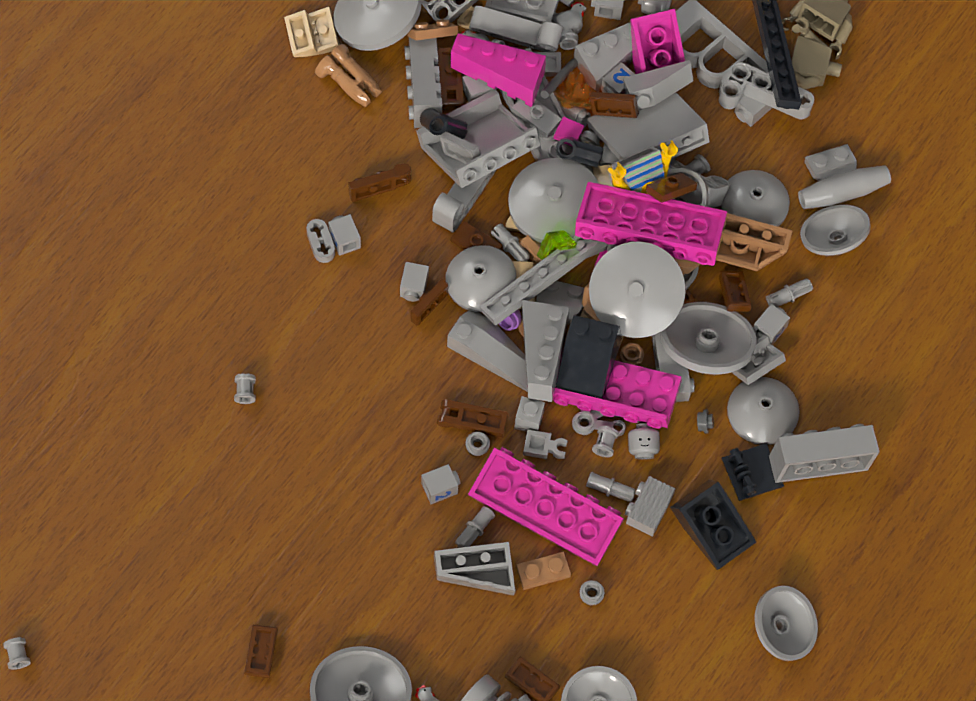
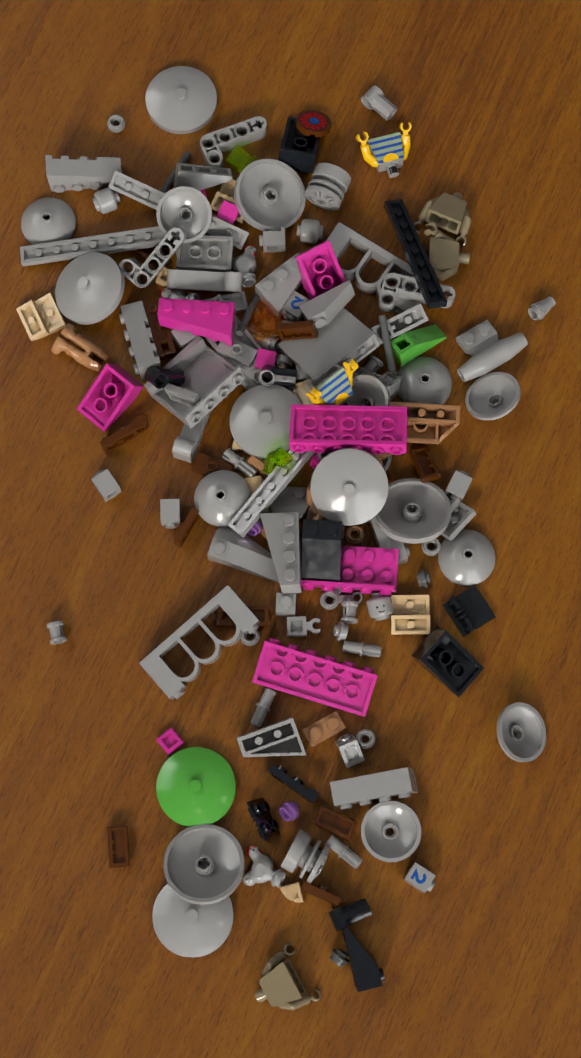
camera: 10 degrees left, 10 degrees up
(316, 242) = (91, 491): light grey beam -> none
(352, 543) = (169, 741): none -> dark pink tile
(371, 603) = (196, 787): none -> bright green dish
(372, 136) = (109, 396): none -> dark pink slope
(440, 29) = (139, 296): medium nougat plate -> none
(440, 483) = (228, 677): light grey brick -> none
(442, 649) = (260, 811): none -> black hinge
(467, 404) = (162, 673): none -> light grey fence
(479, 655) = (289, 810): none -> medium lavender plate
(491, 624) = (293, 783): none -> black plate
(569, 600) = (349, 750): none -> light grey bracket
(588, 647) = (374, 786): none -> light grey wedge
(589, 460) = (340, 631): none -> light grey plate
(650, 505) = (396, 658): light grey brick -> none
(671, 187) = (358, 395): reddish brown plate -> none
(679, 460) = (410, 614): none -> tan slope
(719, 142) = (387, 343): none -> dark grey bar
(725, 382) = (437, 546): none -> light grey plate
(739, 125) = (402, 322): none -> light grey slope
(752, 152) = (415, 342): none -> bright green slope
(789, 293) = (467, 455): light grey axle -> none
(823, 453) = (522, 586): light grey brick -> none
(915, 145) = (541, 308): none -> light grey cone

